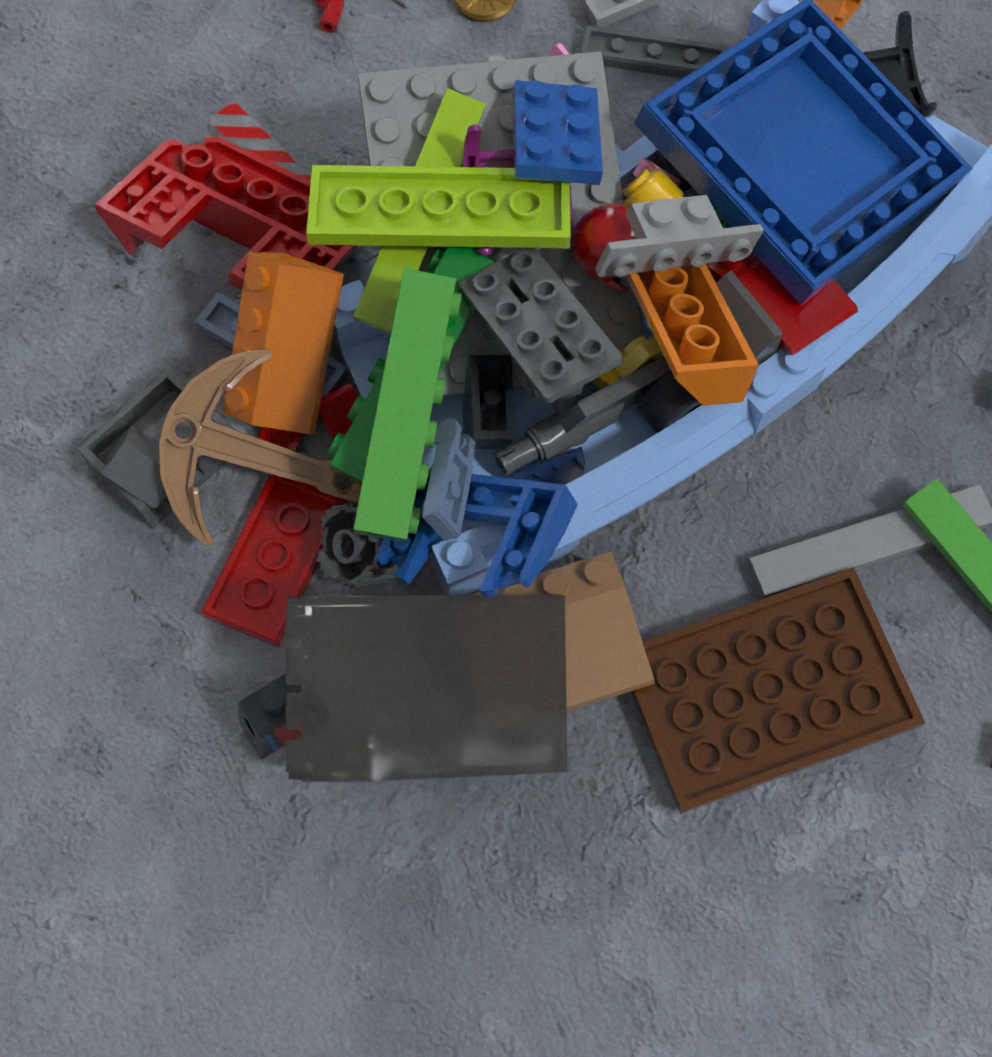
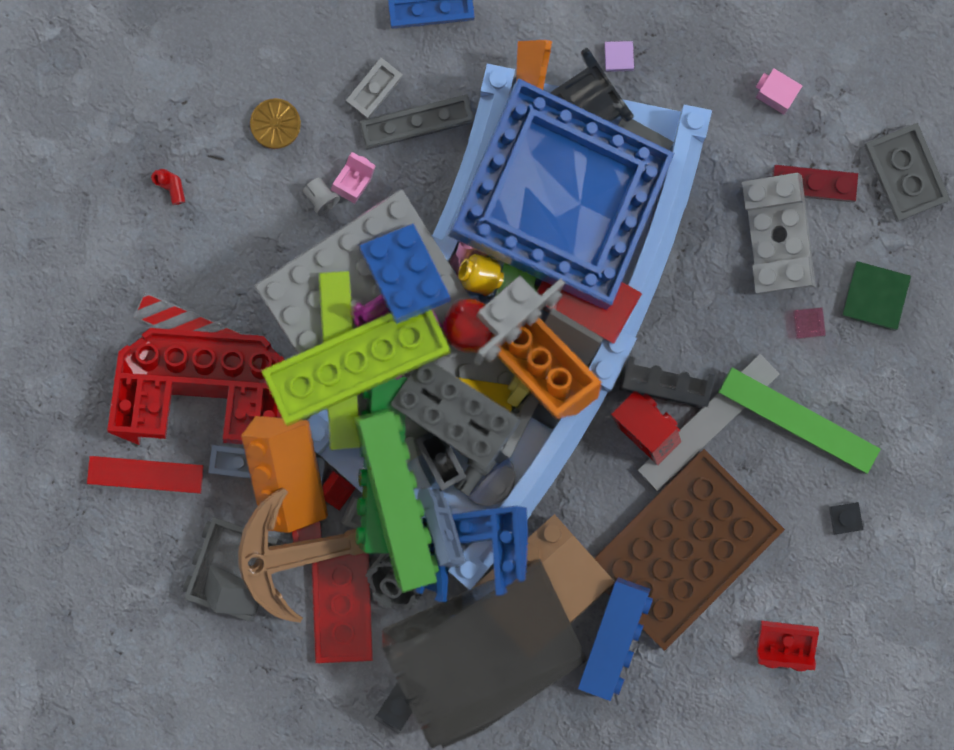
camera: 30 degrees left, 15 degrees up
(119, 297) = (145, 474): none -> red tile
(618, 759) = (614, 639): none -> blue brick
(789, 498) = (647, 427): none -> red brick
(832, 463) = (666, 385): none -> black window
(864, 886) = (787, 646): none -> red bracket
(938, 79) = (619, 56): none -> lavender tile

